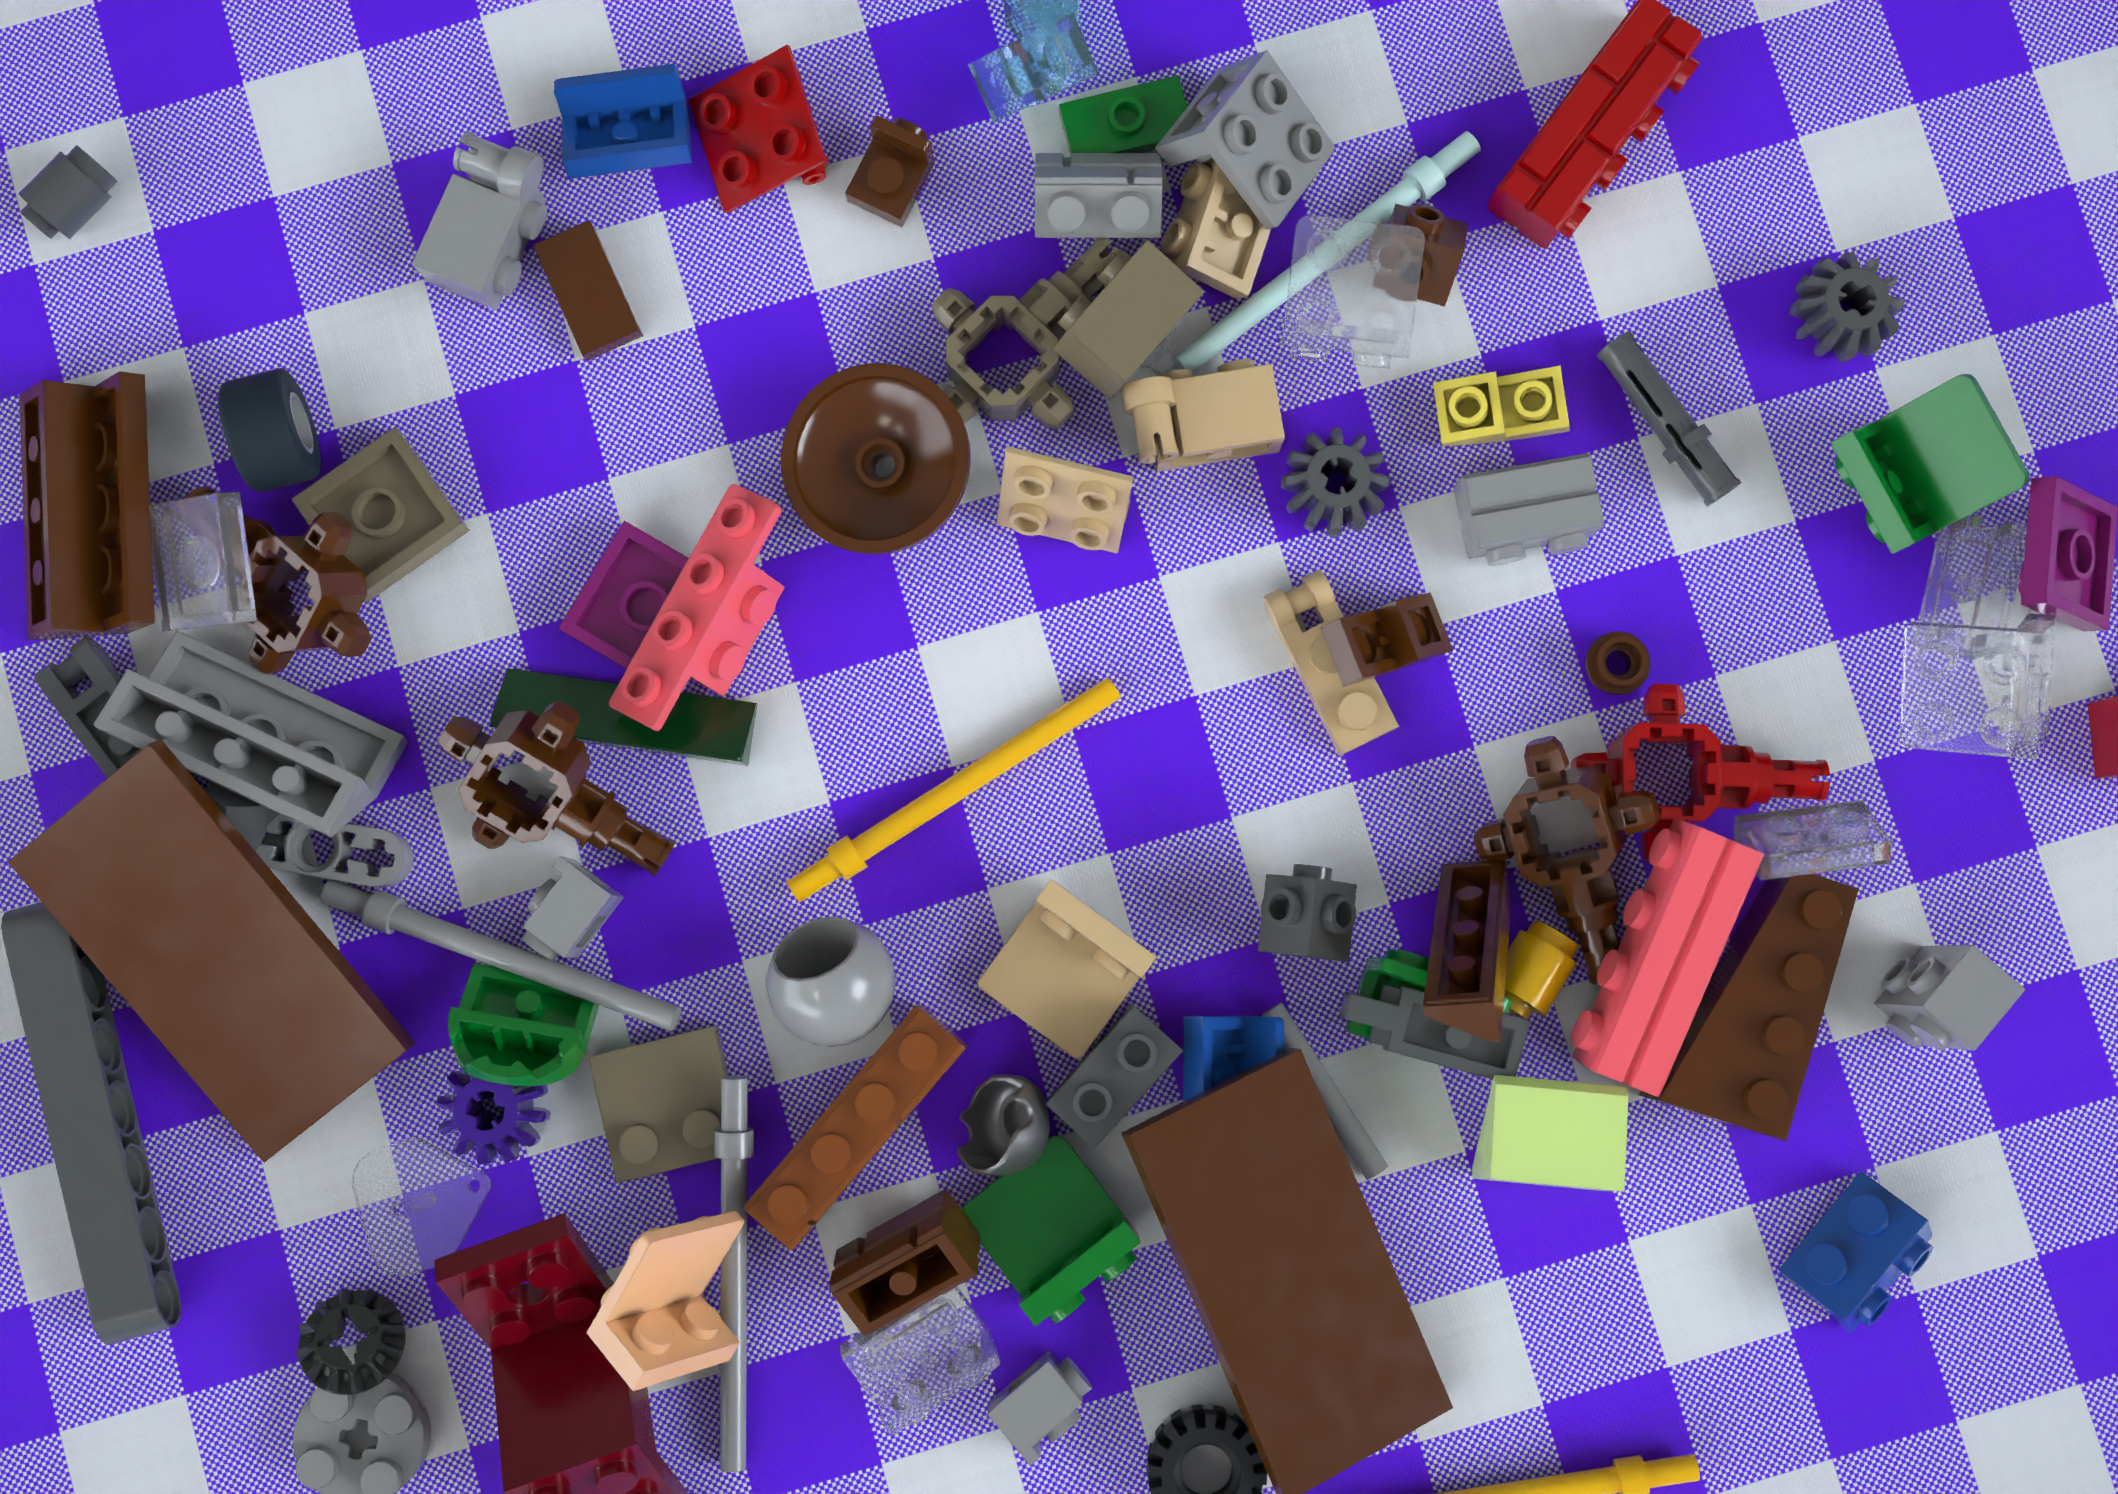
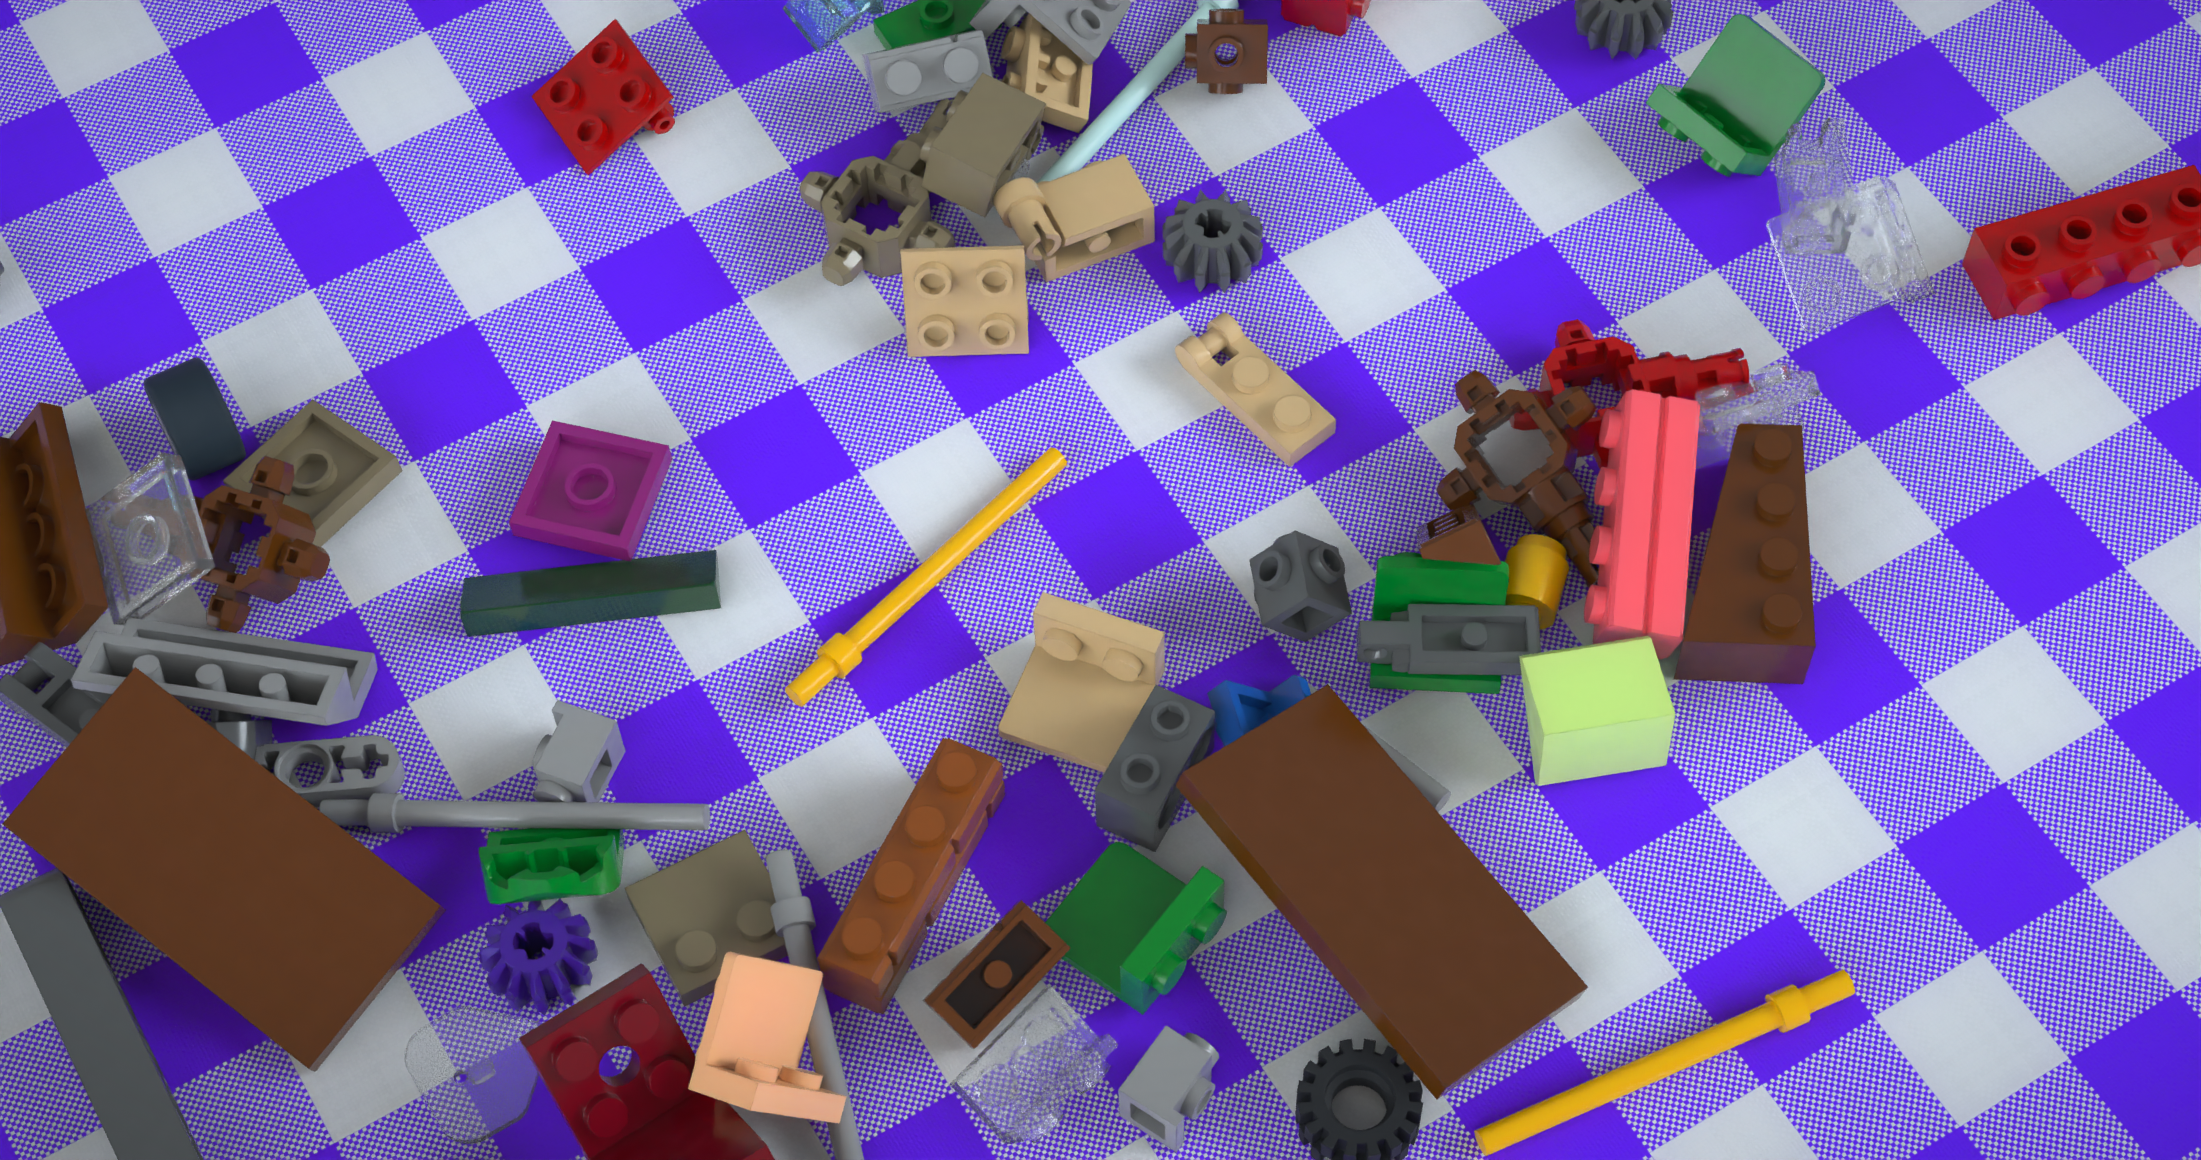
camera: 15 degrees left, 25 degrees down
(484, 222) = (363, 219): light grey hinge -> none
(573, 807) = (562, 666): reddish brown piece -> none
(588, 290) = (473, 257): reddish brown tile -> none
(623, 121) = (476, 113): blue bracket -> none
(708, 613) = (654, 474): coral bracket -> none
(830, 981) = (854, 746): light grey helmet -> none
(844, 433) = (776, 284): reddish brown dish -> none
(892, 170) = (734, 100): reddish brown bracket -> none
(1005, 1126) = (1062, 836): flat silver hair -> none
(1352, 290) = (1179, 85): clear bracket -> none
(1386, 639) = (1302, 351): reddish brown slope -> none
(1501, 407) = (1344, 160): light yellow slope -> none
(1529, 508) = (1395, 220): light grey brick -> none
(1635, 657) = (1526, 312): reddish brown plate -> none
(1669, 419) = (1551, 162): dark grey pin -> none
(1859, 1253) = (1932, 749): blue bracket -> none
(1946, 997) = (1916, 496): light grey brick -> none
(2069, 554) = (1889, 137): magenta plate -> none

